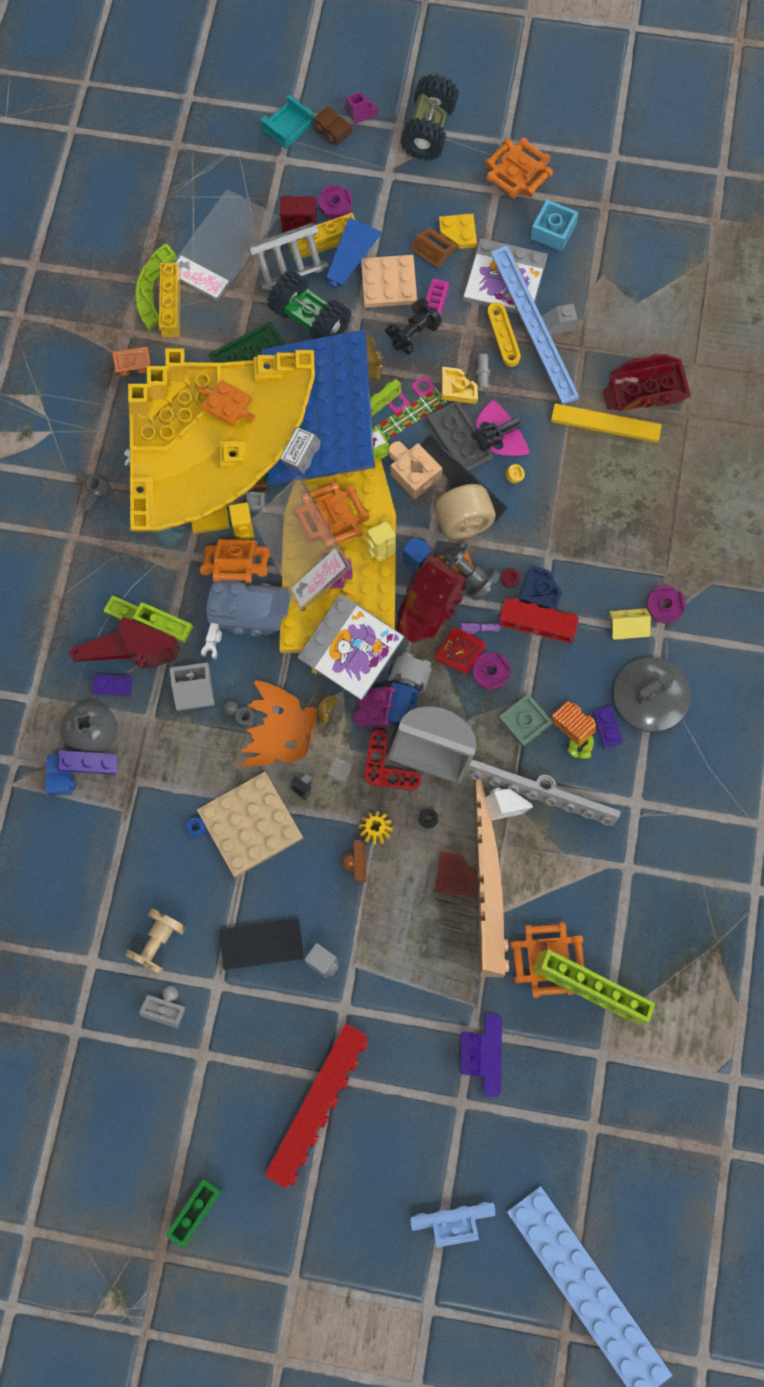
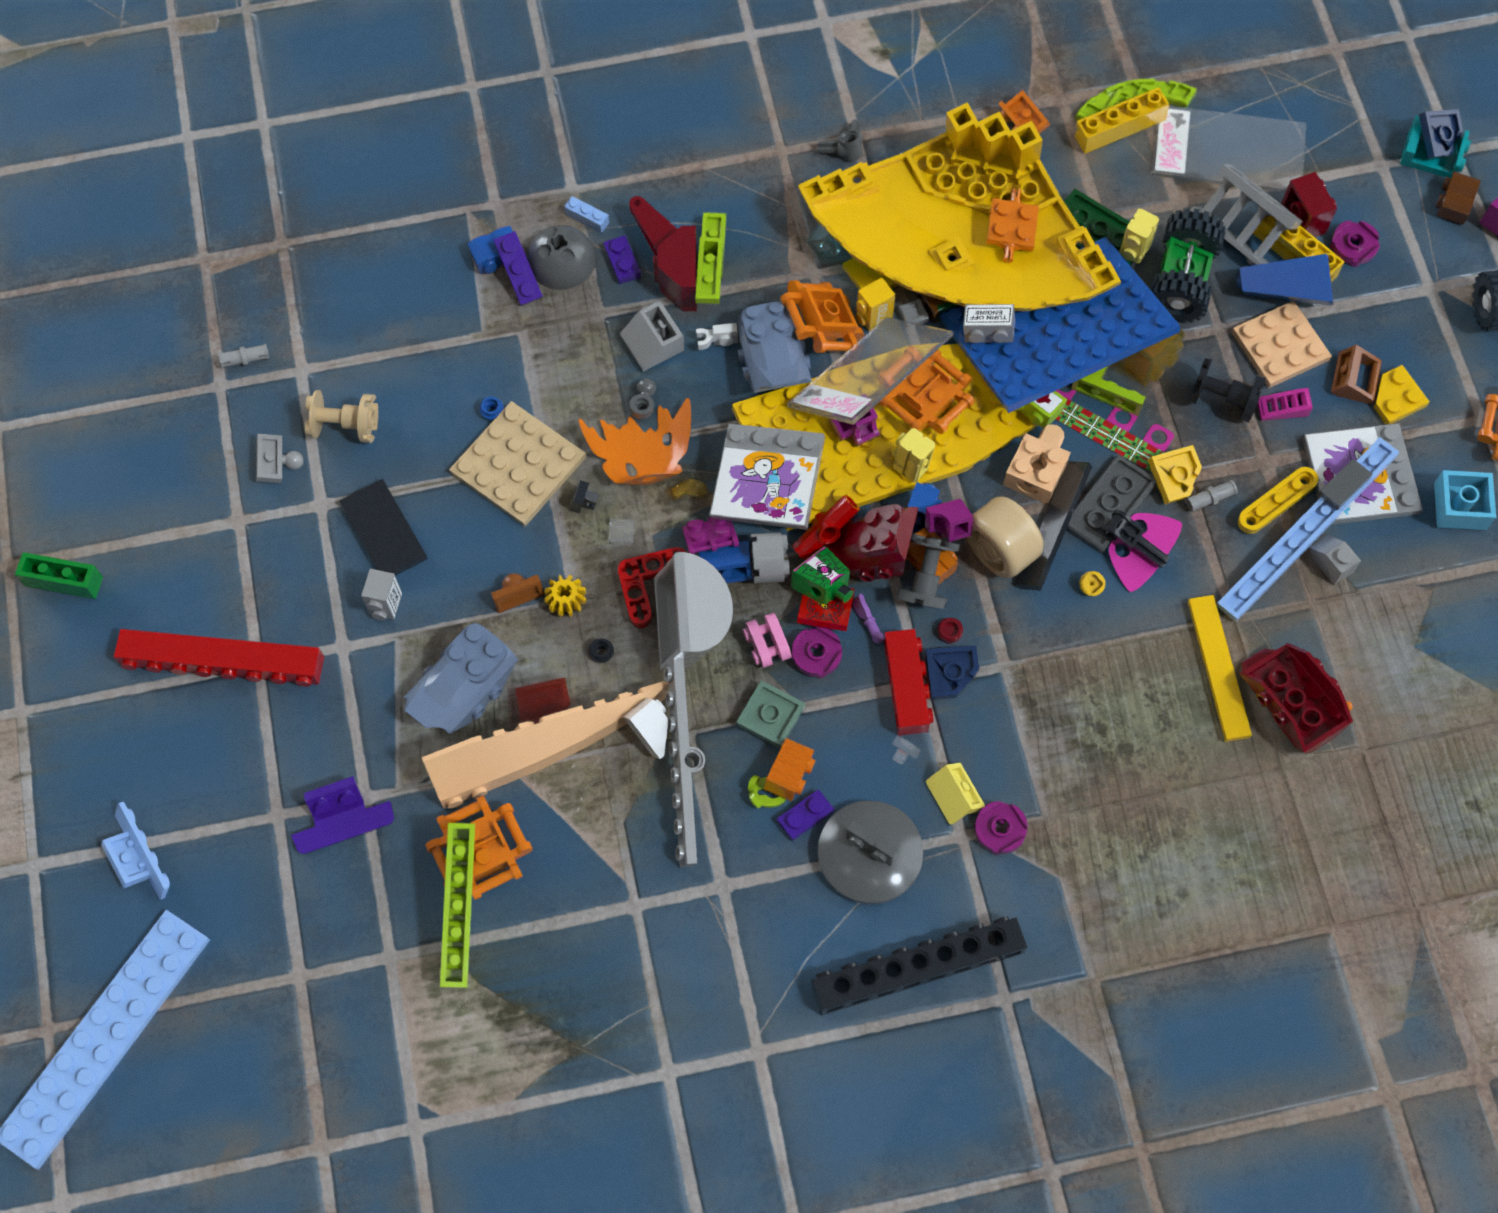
camera: 65 degrees right, 5 degrees down
(60, 1002) = (243, 355): none -> light grey pin
(61, 696) = (586, 214): none -> light blue piece
(274, 326) = (1138, 236): none -> light yellow brick
(278, 111) = (1440, 132): none -> dark blue plate
(405, 624) = (826, 527): none -> red piece
(414, 927) = (461, 681): none -> sand blue slope
(441, 538) = (949, 520): none -> magenta brick
(441, 643) = (822, 578): none -> green torso
(463, 707) = (761, 653): none -> bright pink brick
(516, 287) = (1345, 484): none -> dark grey tile
(587, 642) = (905, 749): none -> clear tile
(750, 632) = (831, 1000): none -> black brick

